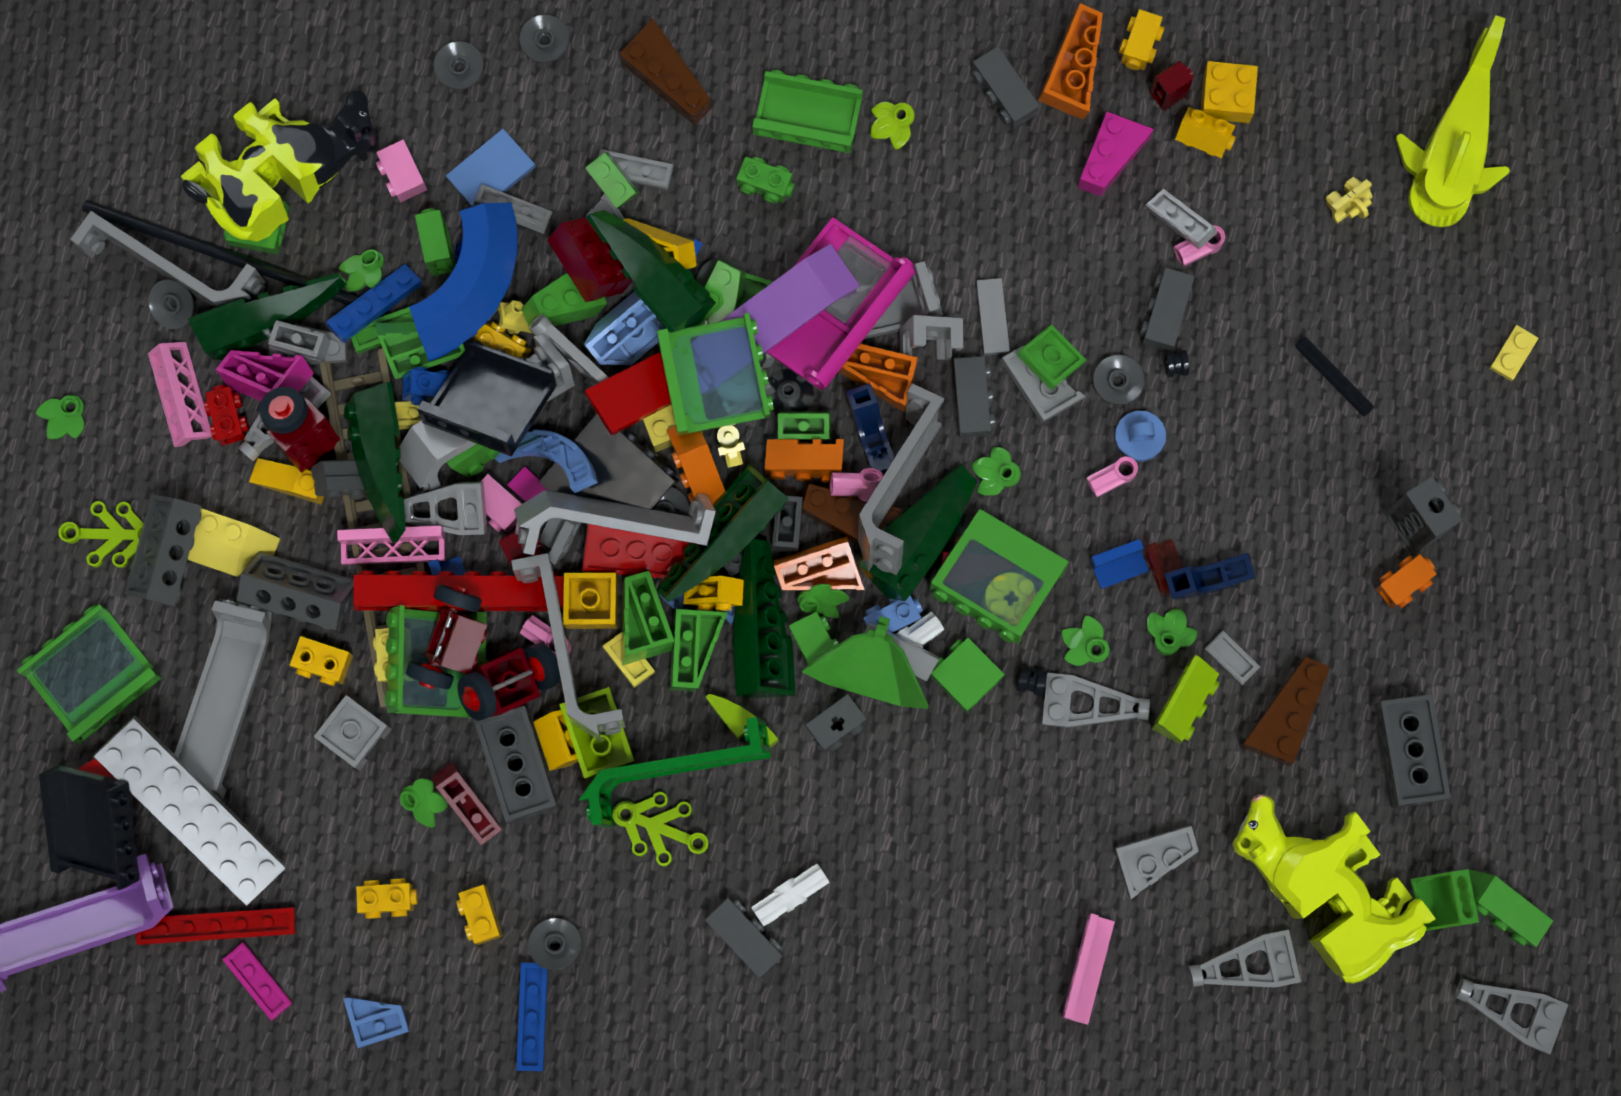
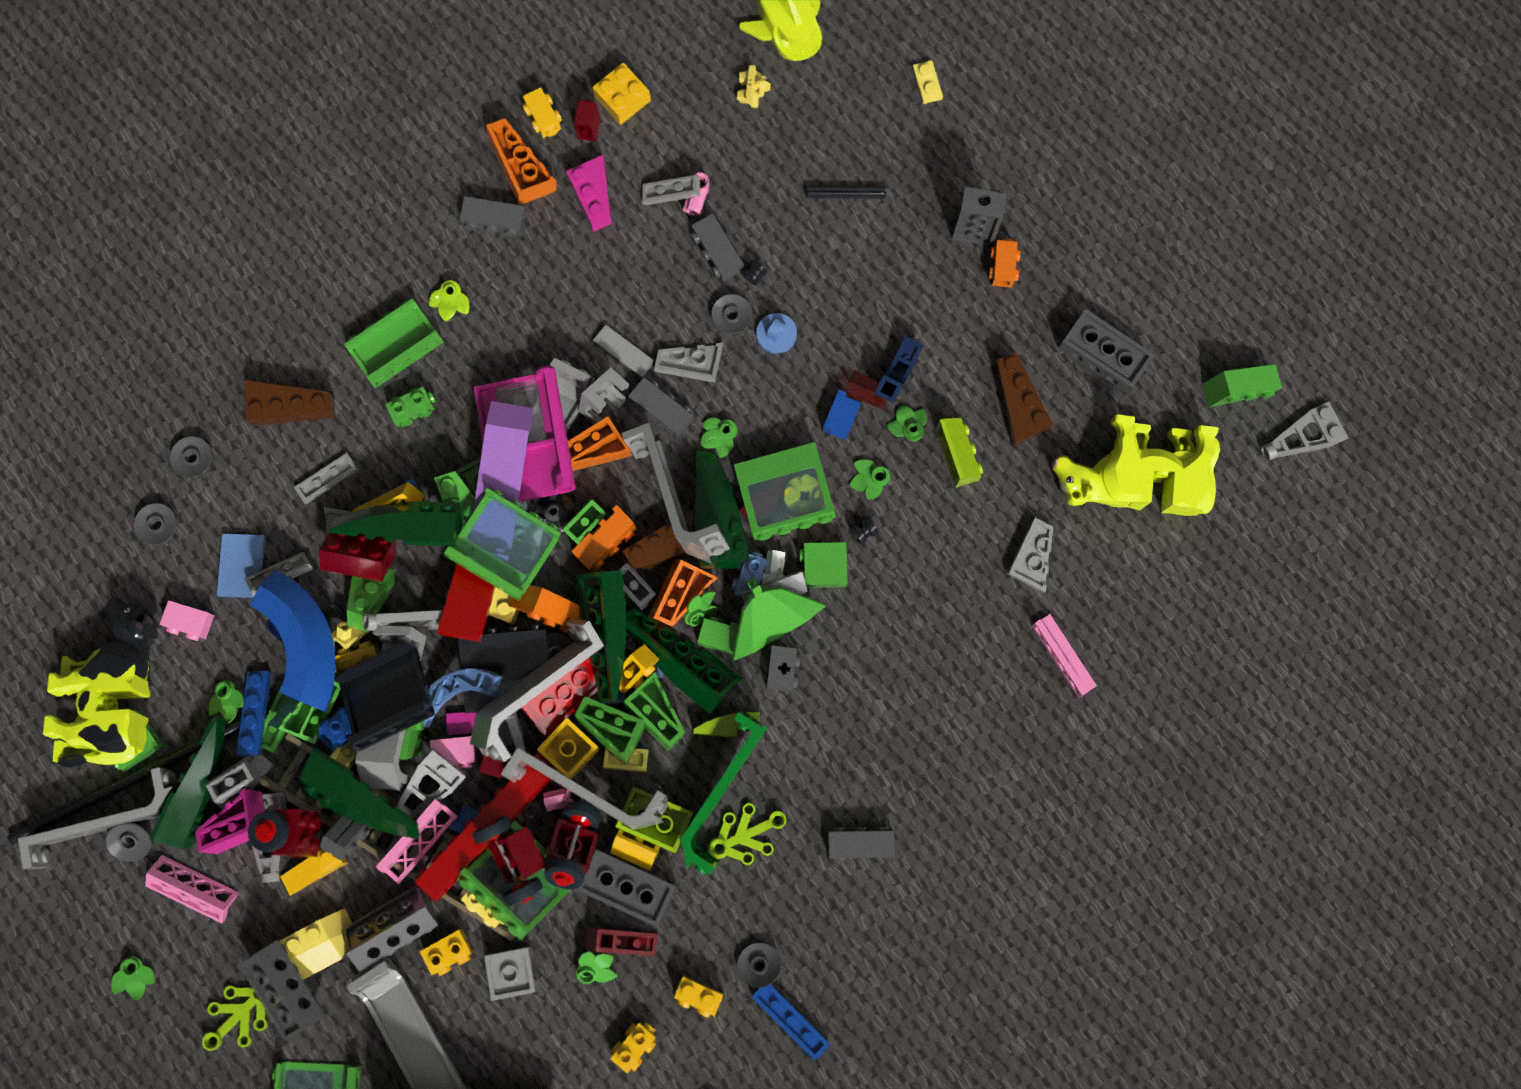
camera: 50 degrees left, 0 degrees up
(224, 410) = (227, 868): red brick -> none
(435, 242) = (253, 639): bright green piece -> none
(612, 180) = (320, 496): bright green brick -> none
(624, 333) = (423, 575): light blue wedge -> none
(730, 445) = (554, 576): light yellow hips -> none
(790, 895) = (860, 792): white piece -> none
(855, 484) = (655, 519): bright pink piece -> none
(870, 427) = (624, 485): dark blue arch -> none
(1051, 357) = (681, 340): bright green tile -> none
(1058, 699) = (890, 527): light grey plate -> none
(1110, 477) = (785, 372): bright pink piece -> none
(1206, 133) = (633, 128): yellow brick -> none
(1232, 658) = (957, 403): light grey tile -> none
(1280, 959) = (1157, 538): light grey plate -> none
(1448, 898) = (1210, 409): bright green piece -> none

